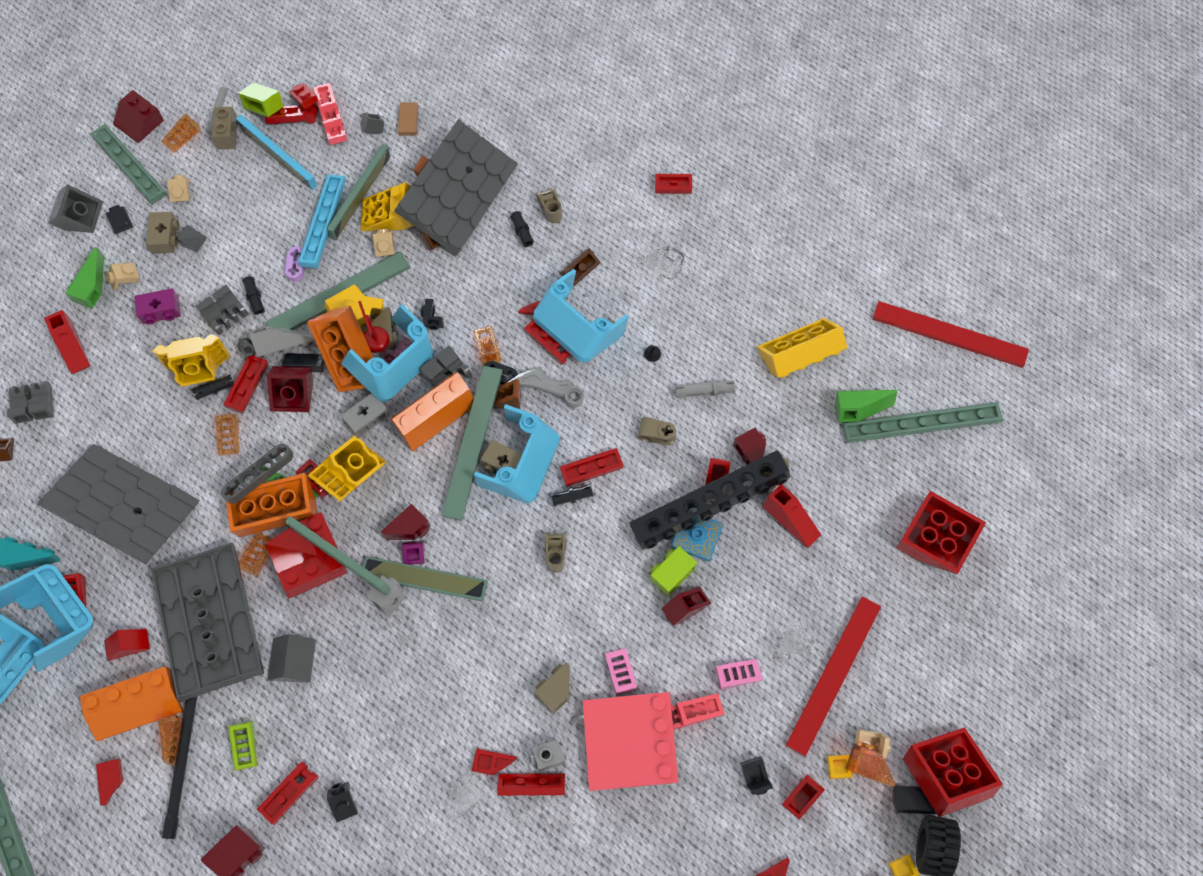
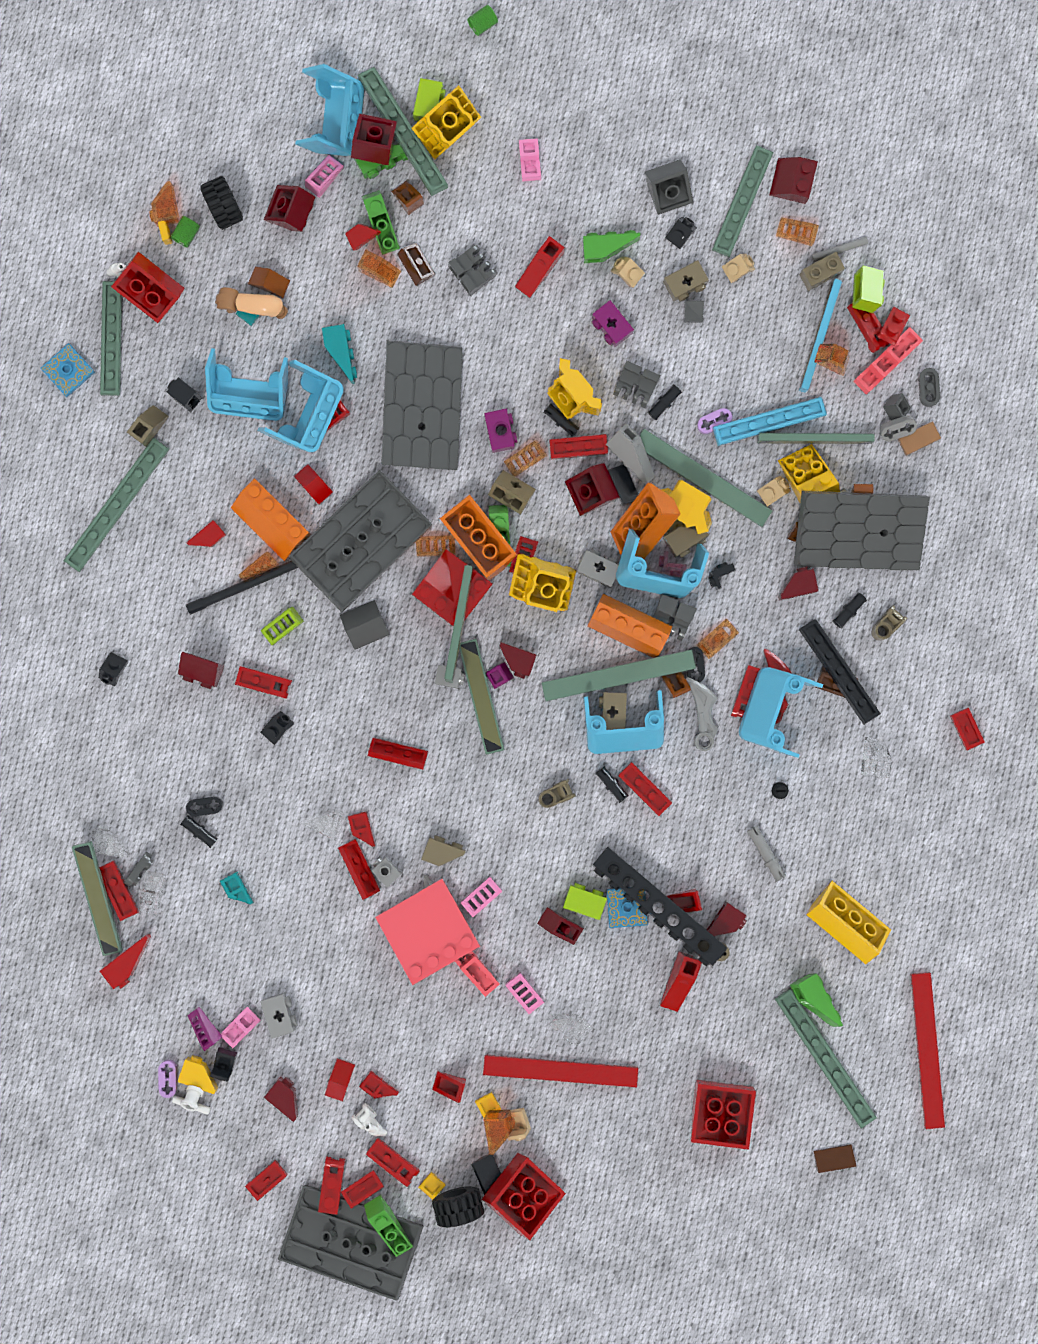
camera: 65 degrees right, 20 degrees up
(178, 437) = (493, 421): none -> magenta brick
(245, 342) = (612, 425): dark grey pin -> none
(246, 455) = (511, 492): none -> dark tan brick
(259, 476) = (499, 510): dark grey beam -> none
(299, 146) = (833, 357): none -> clear orange slope
(372, 93) = (931, 387): none -> dark grey plate
(376, 337) = (672, 541): red piece -> none
(392, 128) = (898, 428): none -> light grey beam
(435, 686) = (397, 753): none -> red plate
(477, 256) = (800, 584): none -> dark red slope
(570, 256) = (839, 671): none -> black tile
(654, 431) = (704, 826): dark tan piece -> none
(756, 776) = (448, 1042): black bracket -> none
(1023, 455) = (834, 1158): none -> reddish brown slope

